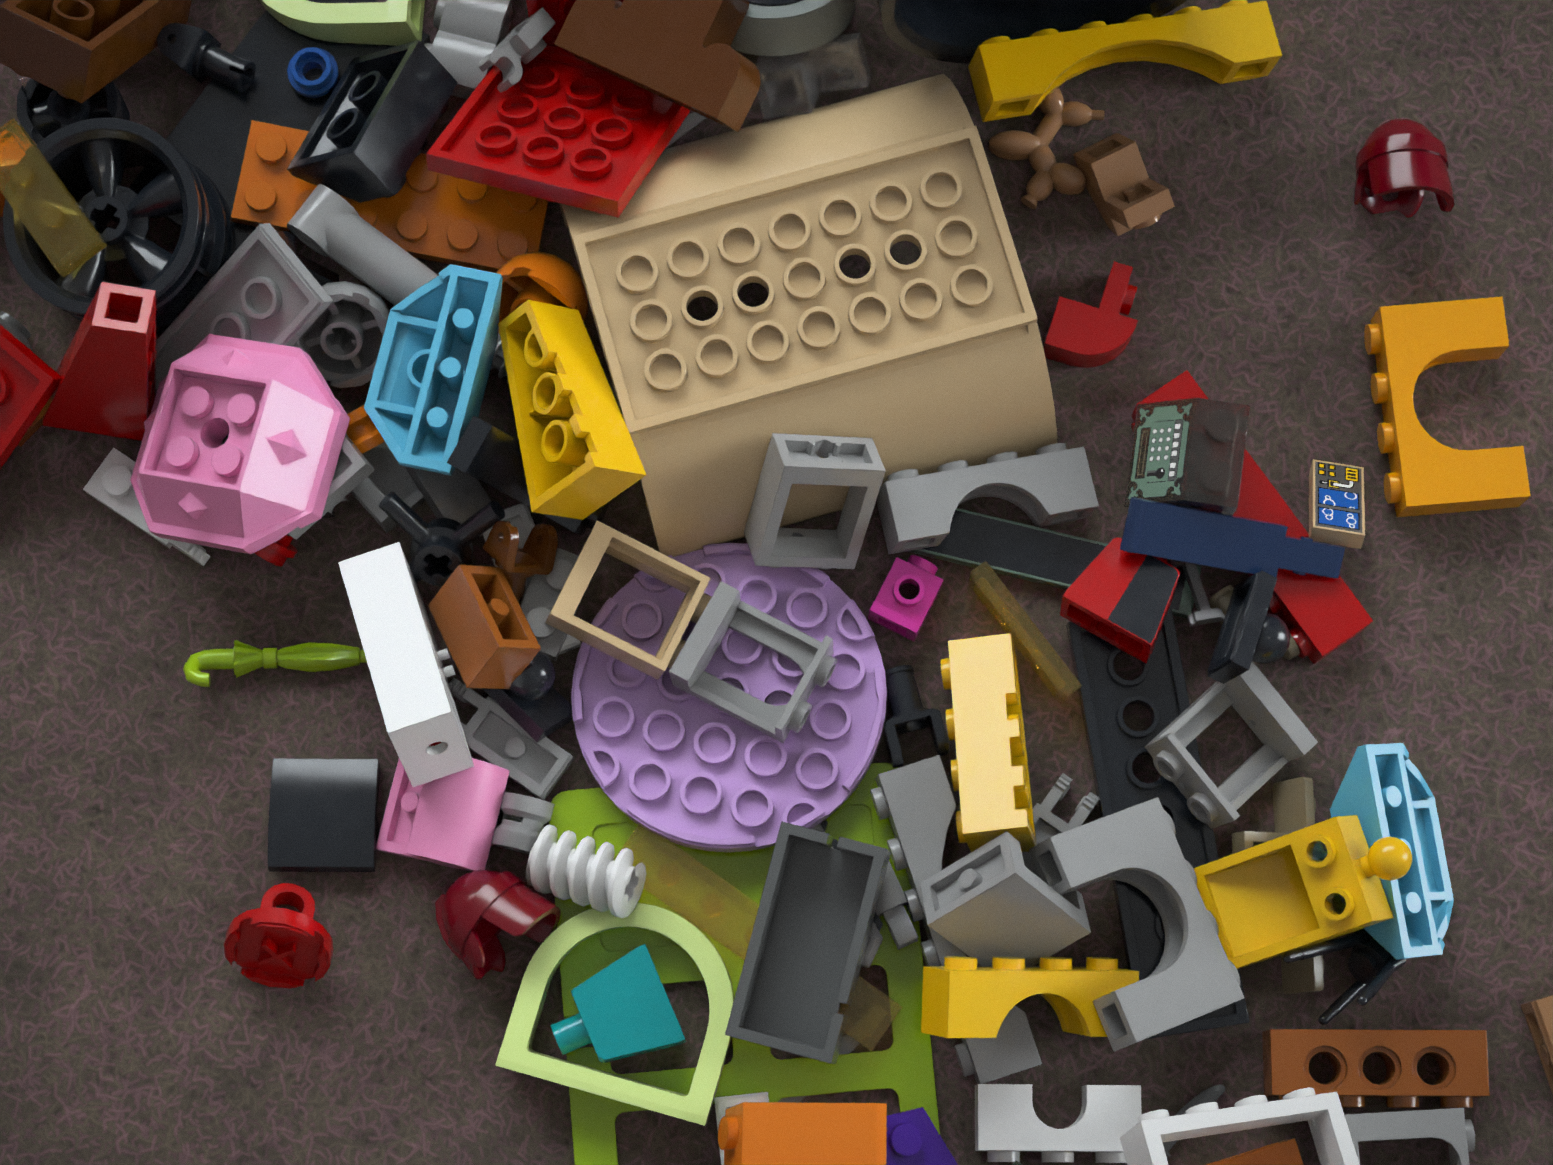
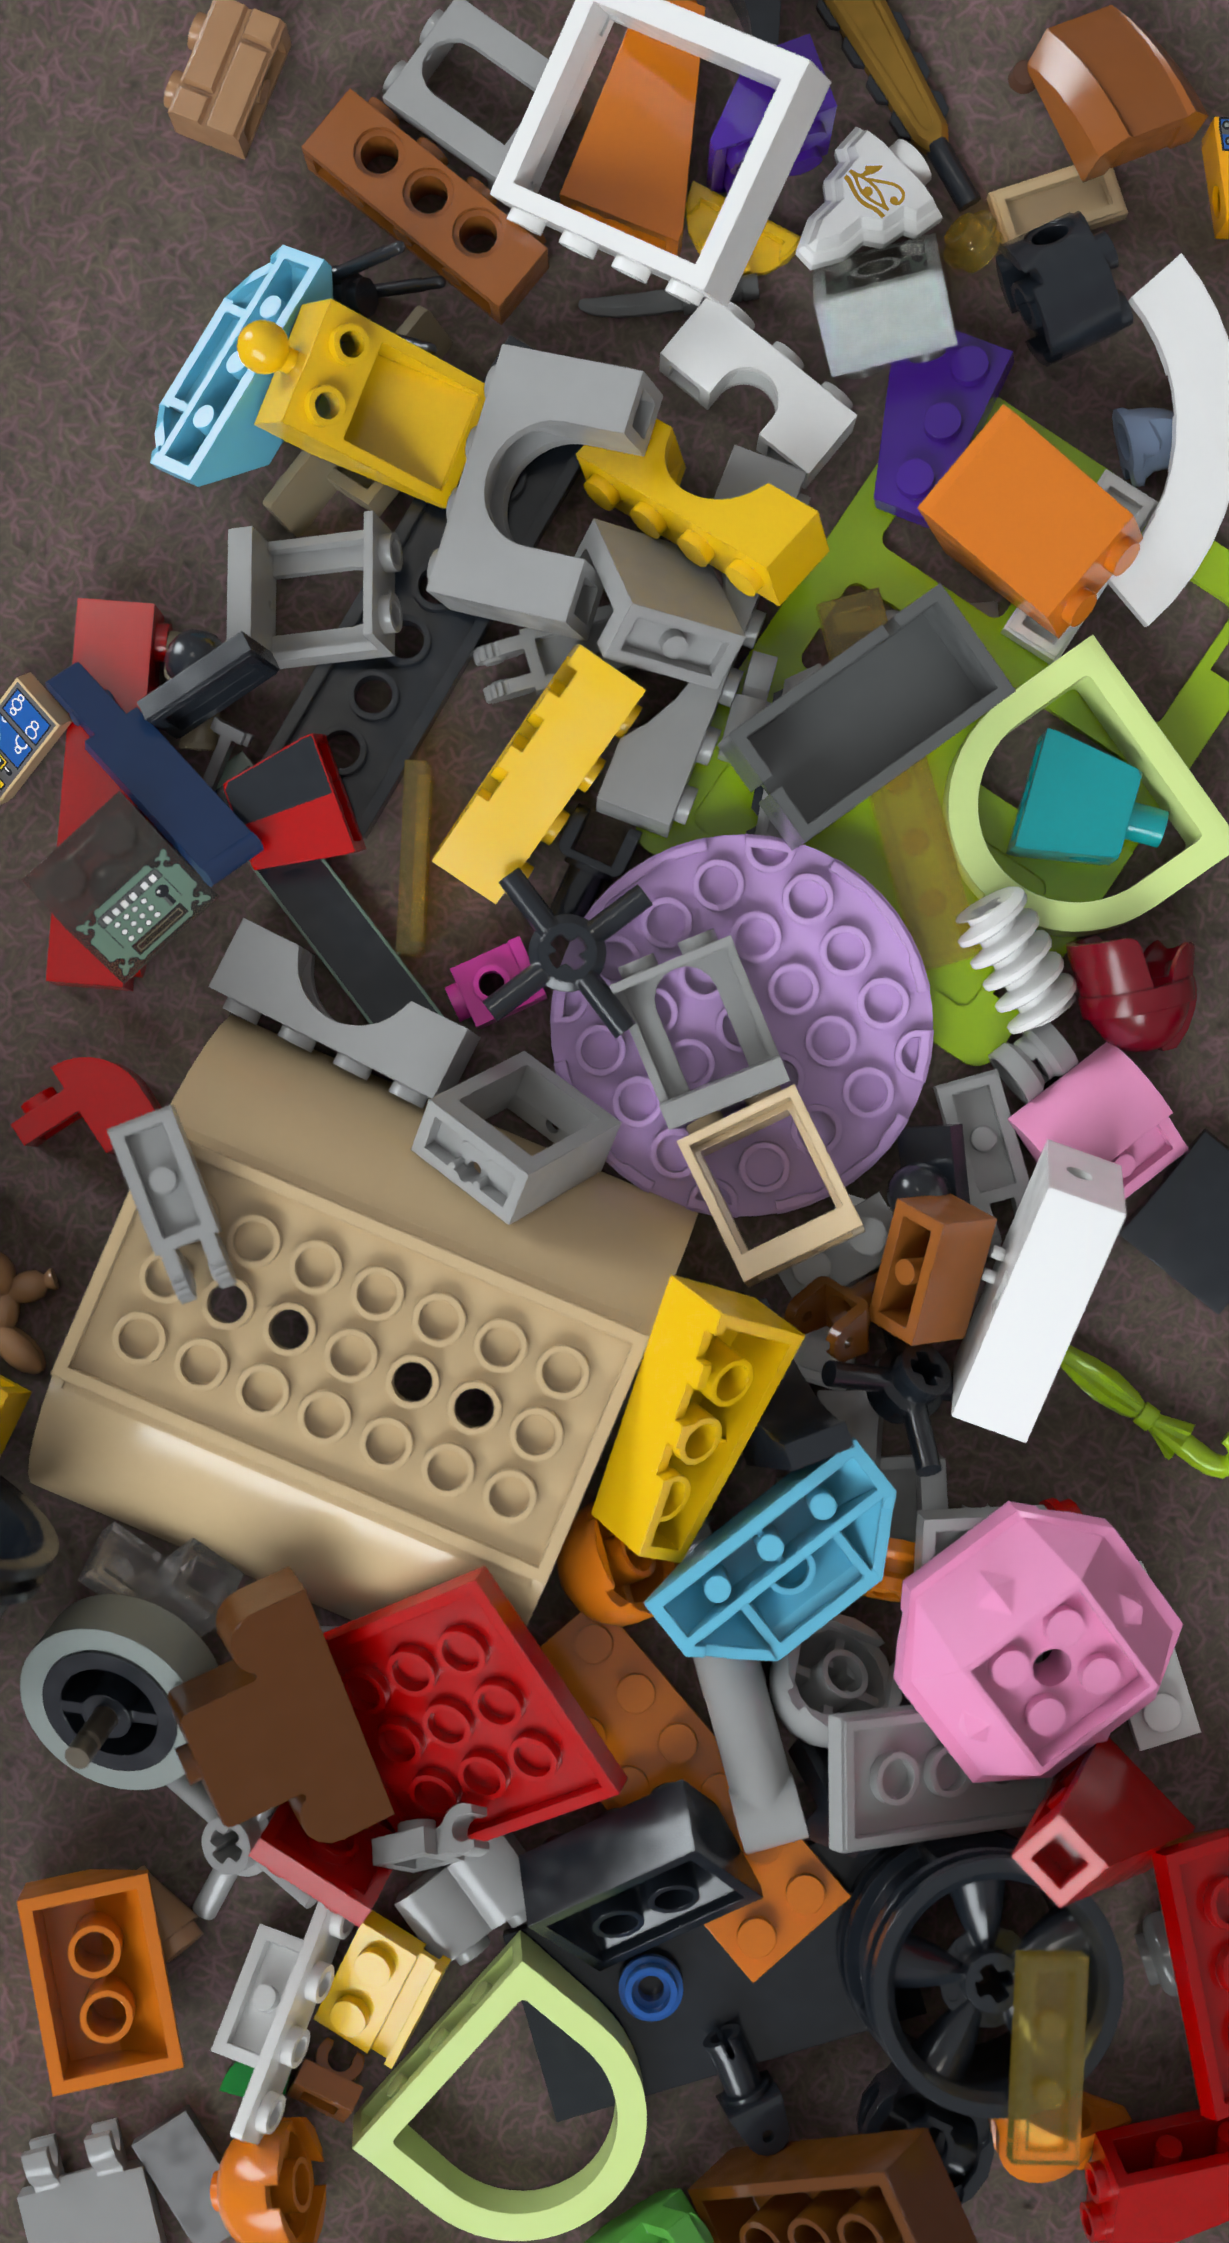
camera: 135 degrees left, 10 degrees up
(888, 657) = (590, 932): none -> black bar
(990, 280) = (171, 1196): none -> light grey hinge

